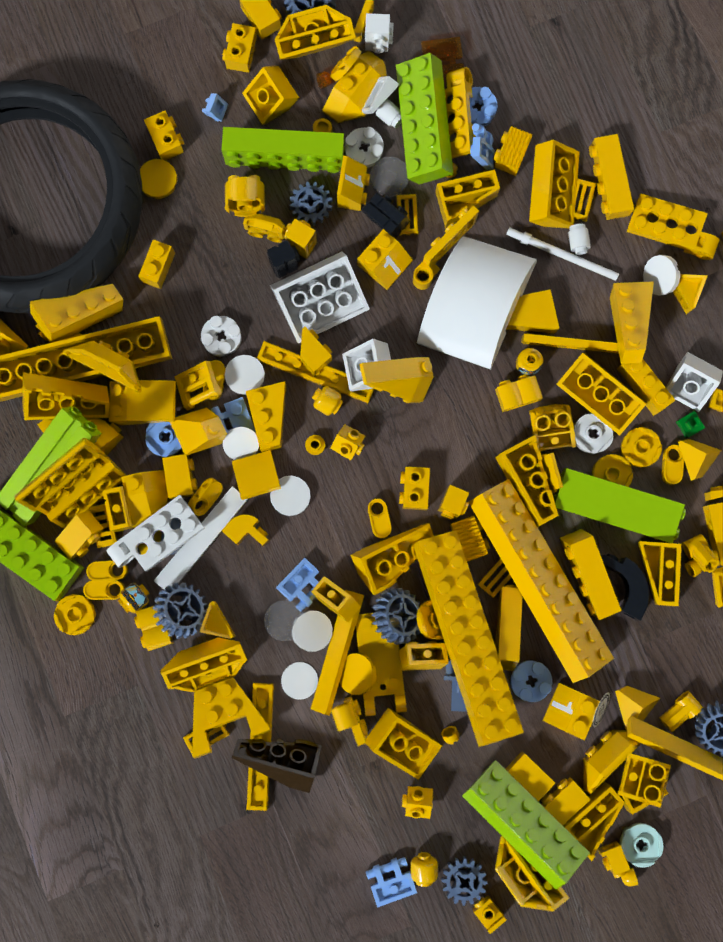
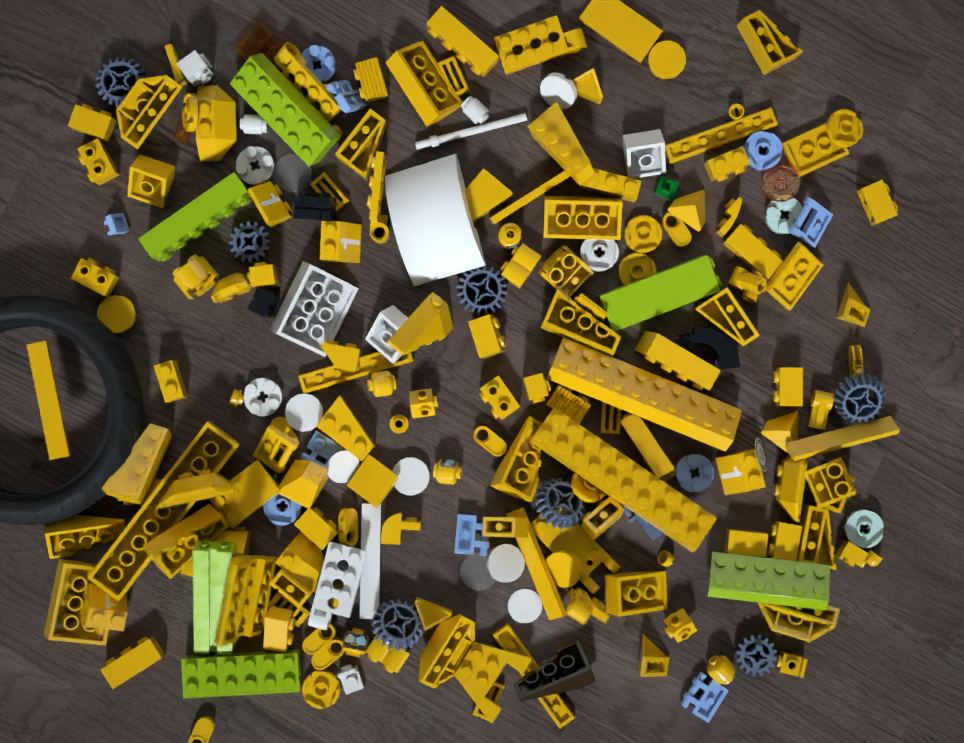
camera: 35 degrees left, 5 degrees up
(45, 198) = (48, 400): none -> yellow tile
(105, 625) = (350, 678): none -> white bracket
(199, 320) = (236, 397): none -> yellow plate
(322, 125) = (211, 175): yellow tile -> none
(323, 515) = (447, 471): none -> yellow head
(371, 813) = (651, 660): none -> yellow slope
(382, 90) = (235, 115): white slope -> none
(445, 429) = (487, 336): none -> yellow brick
(455, 396) = (475, 305): none -> sand blue gear
(668, 670) = (788, 386): none -> yellow brick

